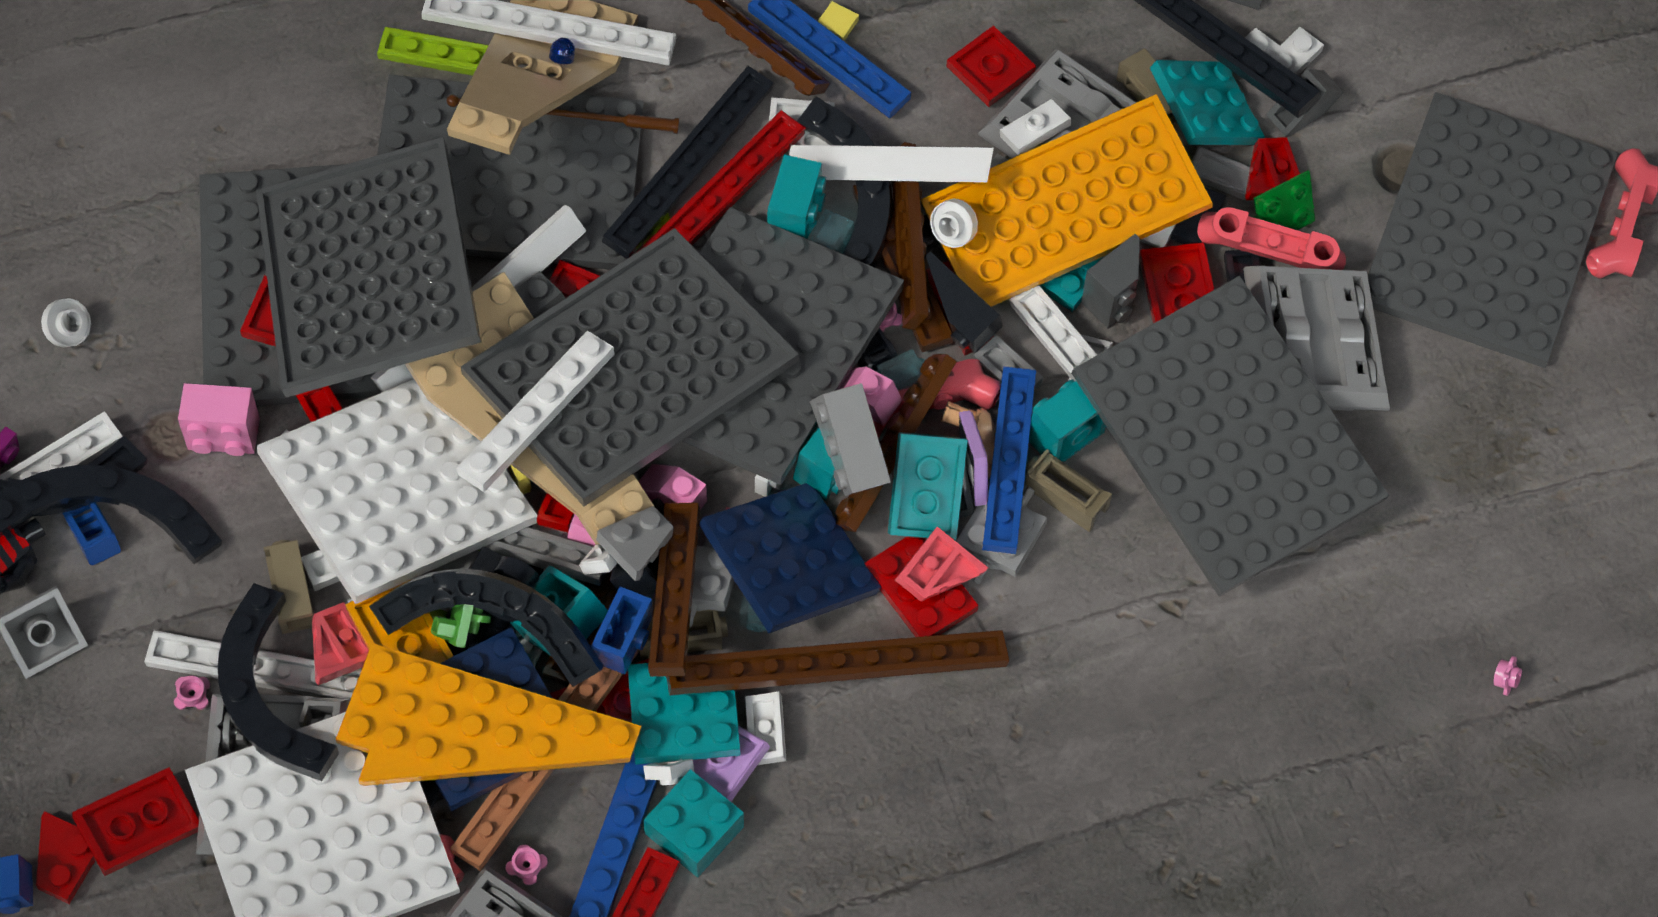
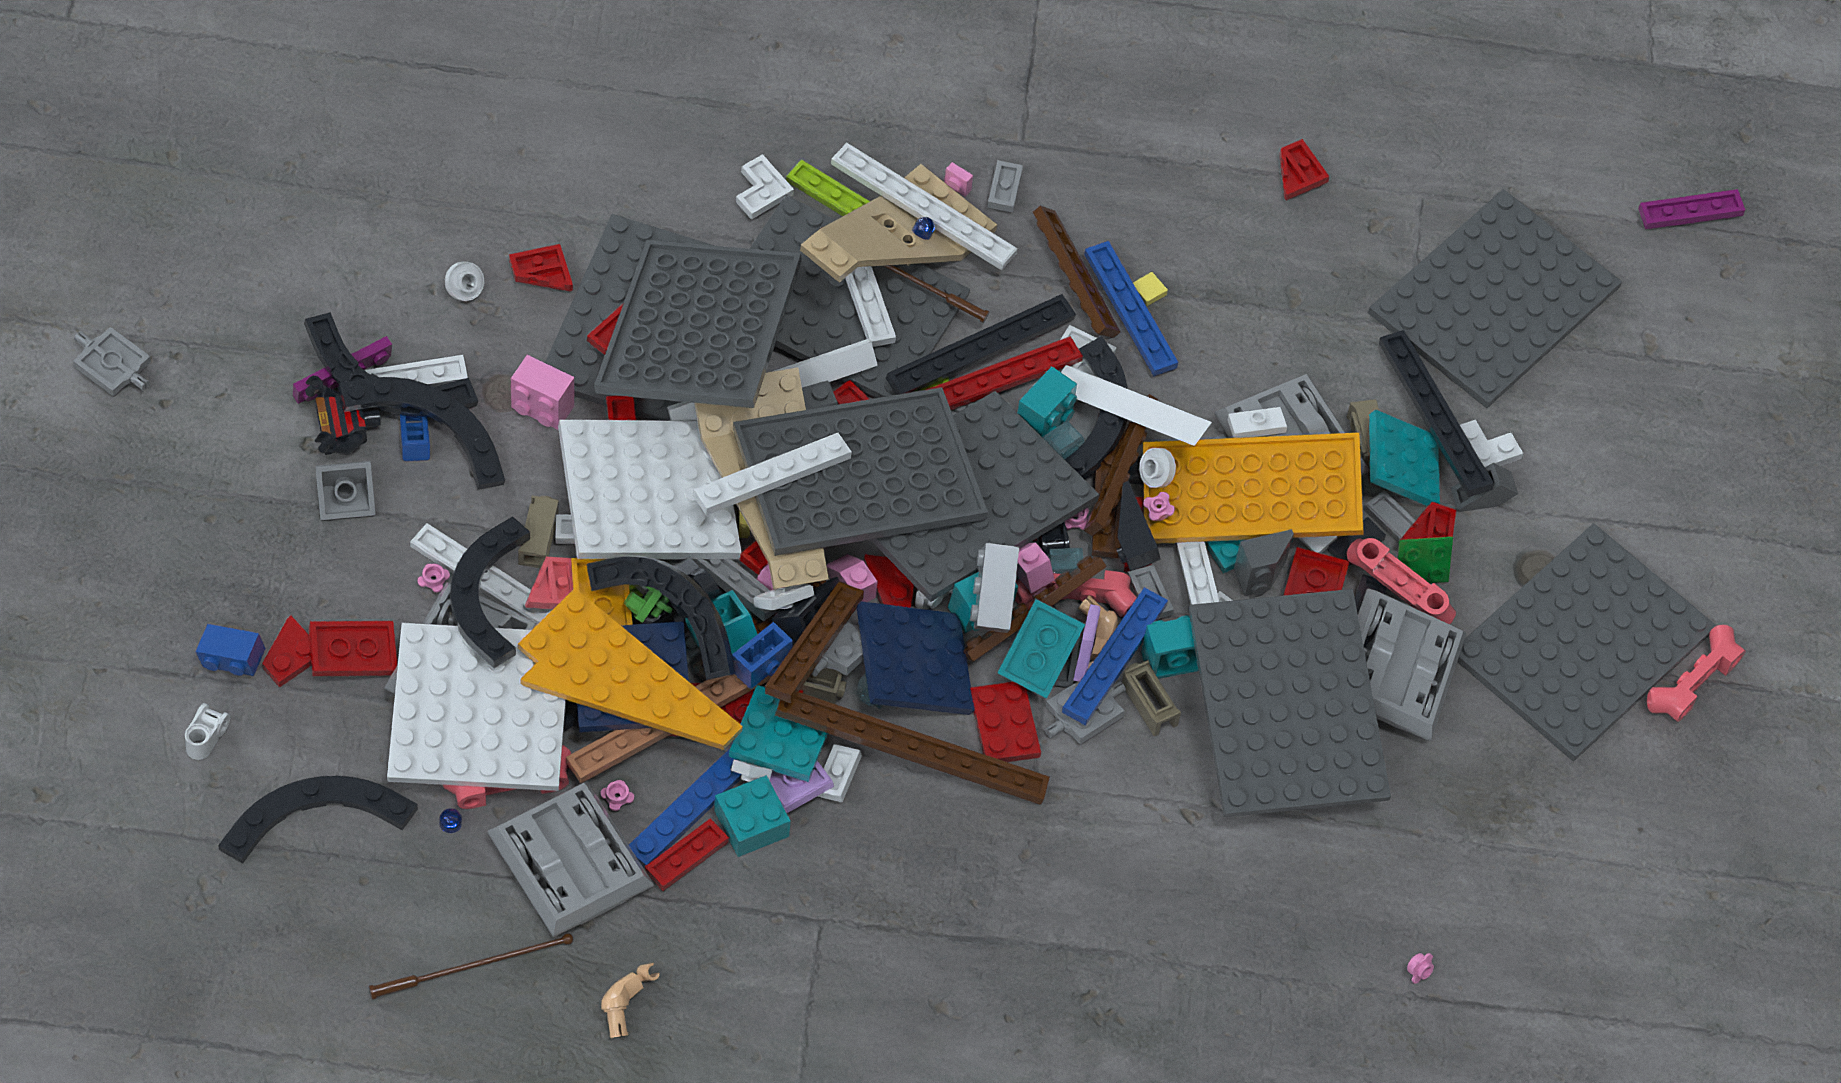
camera: 20 degrees right, 5 degrees down
(148, 270) = (542, 268): none -> red wing
(363, 74) = (767, 189): none -> white plate
(550, 169) = (870, 306): none -> white plate
(636, 540) = (803, 595): light grey wing -> none
(724, 481) = (892, 584): none -> red wing
(939, 567) = (1022, 711): coral wing -> none
(976, 275) = (1159, 513): none -> bright pink plate
(991, 66) = (1251, 367): red plate -> none

